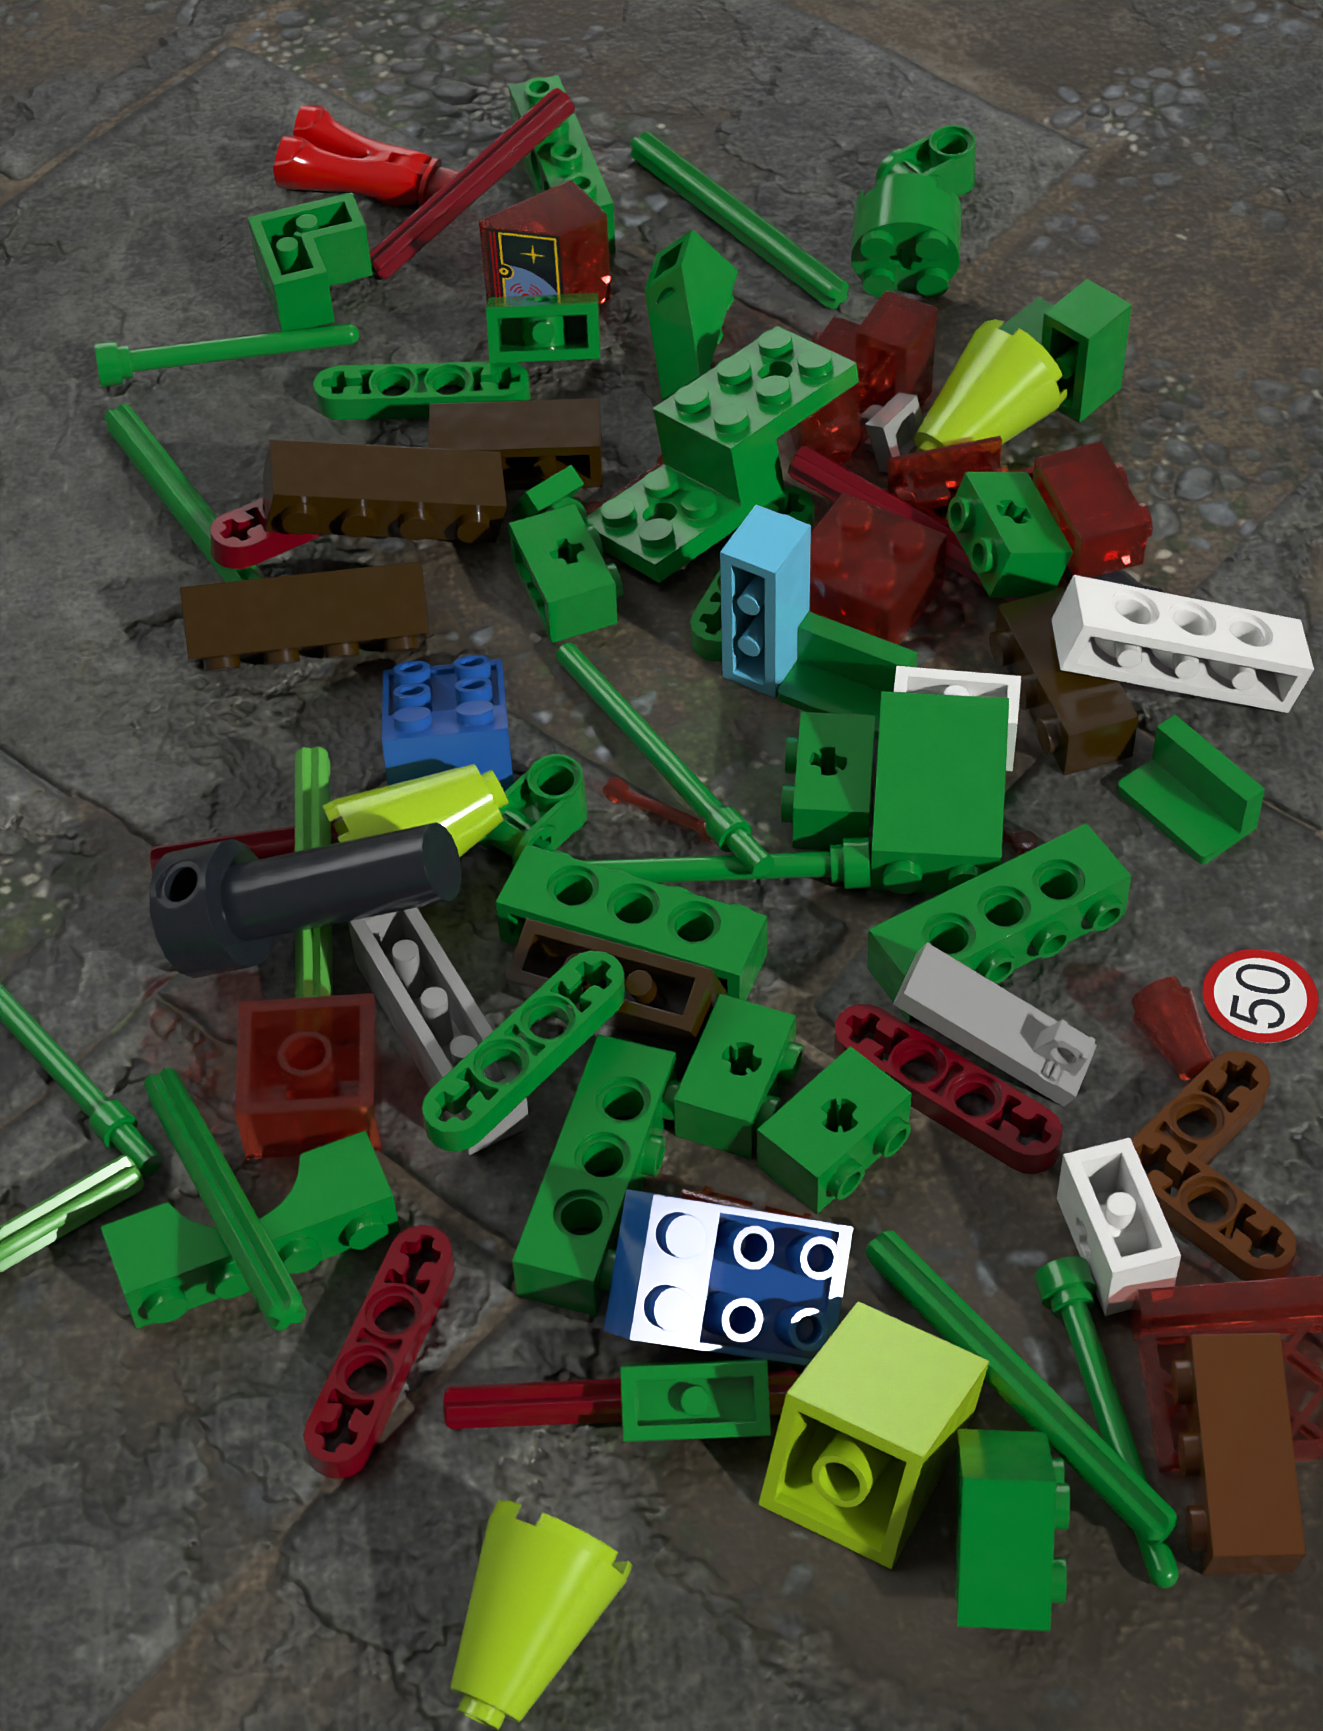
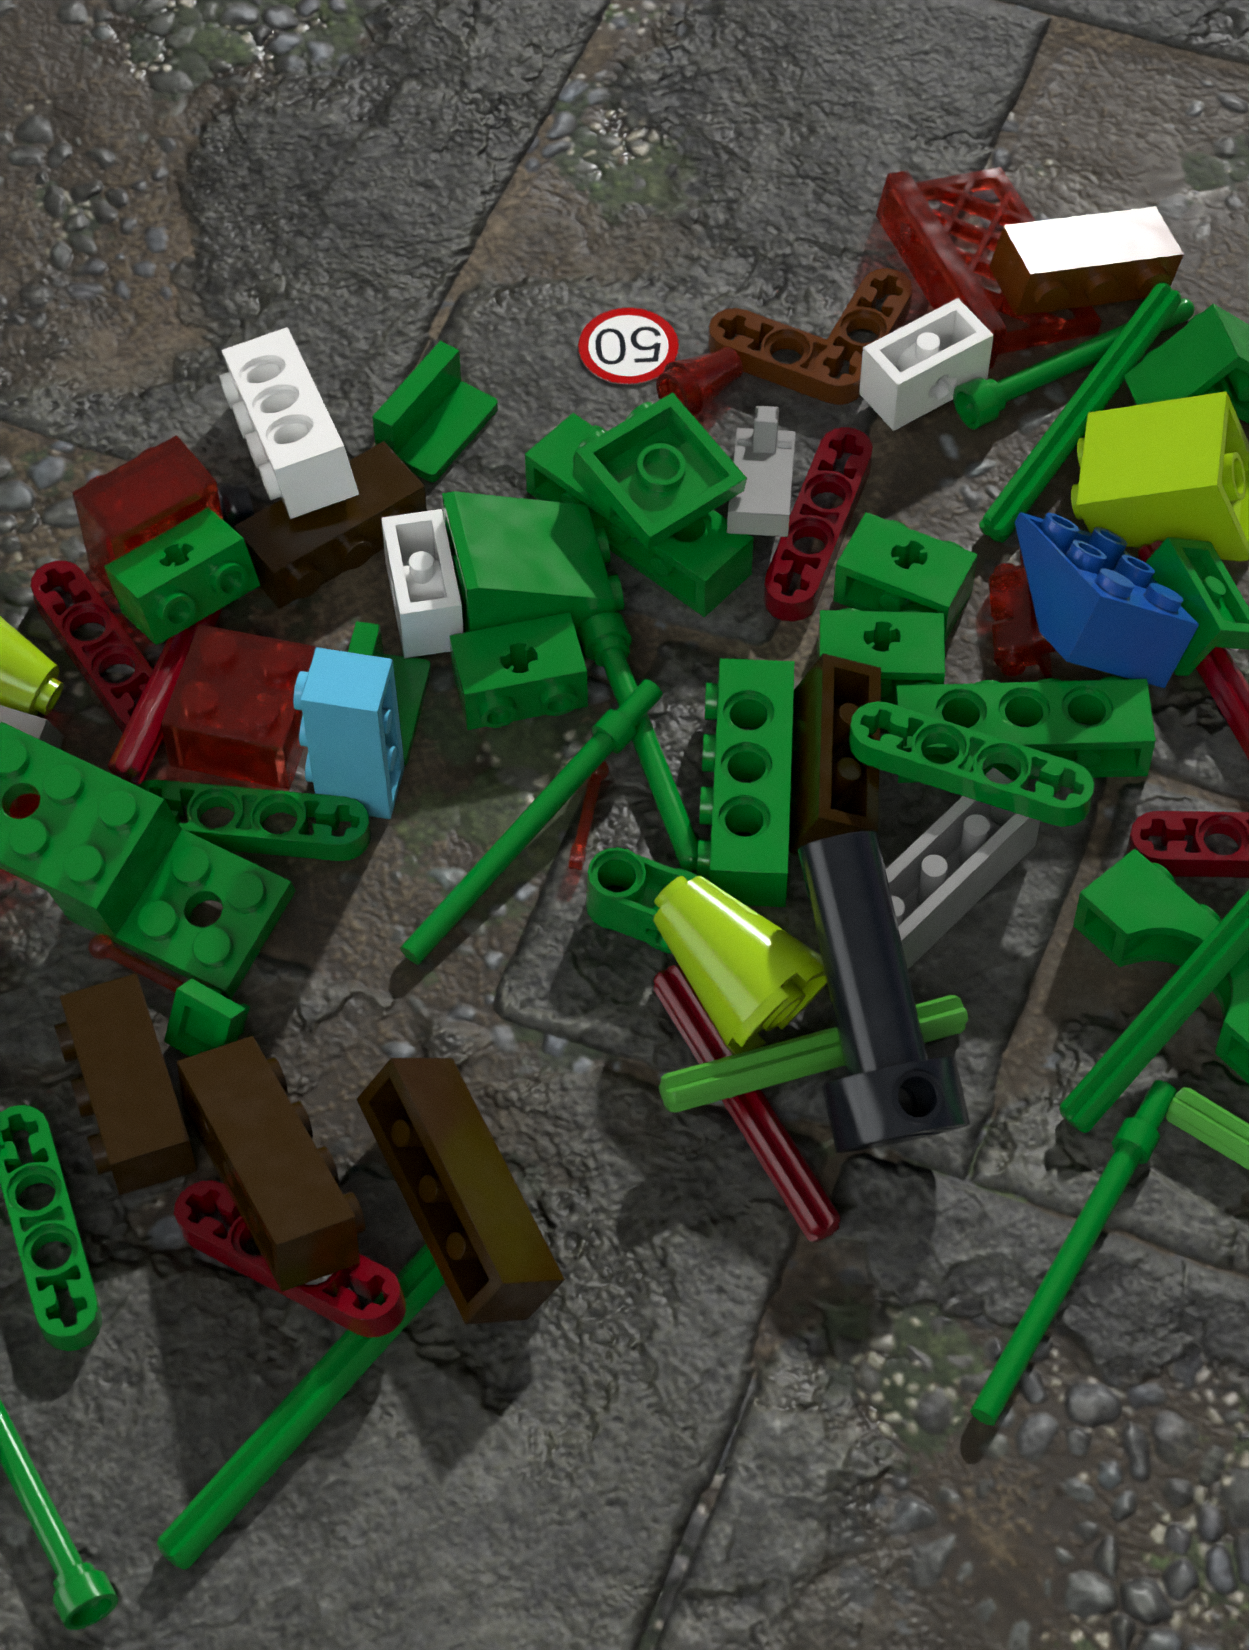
camera: 110 degrees left, 5 degrees up
(308, 1073) = (1035, 967): clear red brick -> none
(445, 719) = (559, 1015): blue slope -> none
(565, 572) = (312, 975): green brick -> none
(926, 475) = (102, 680): clear red hinge -> none
(997, 891) = (656, 470): none -> green plate

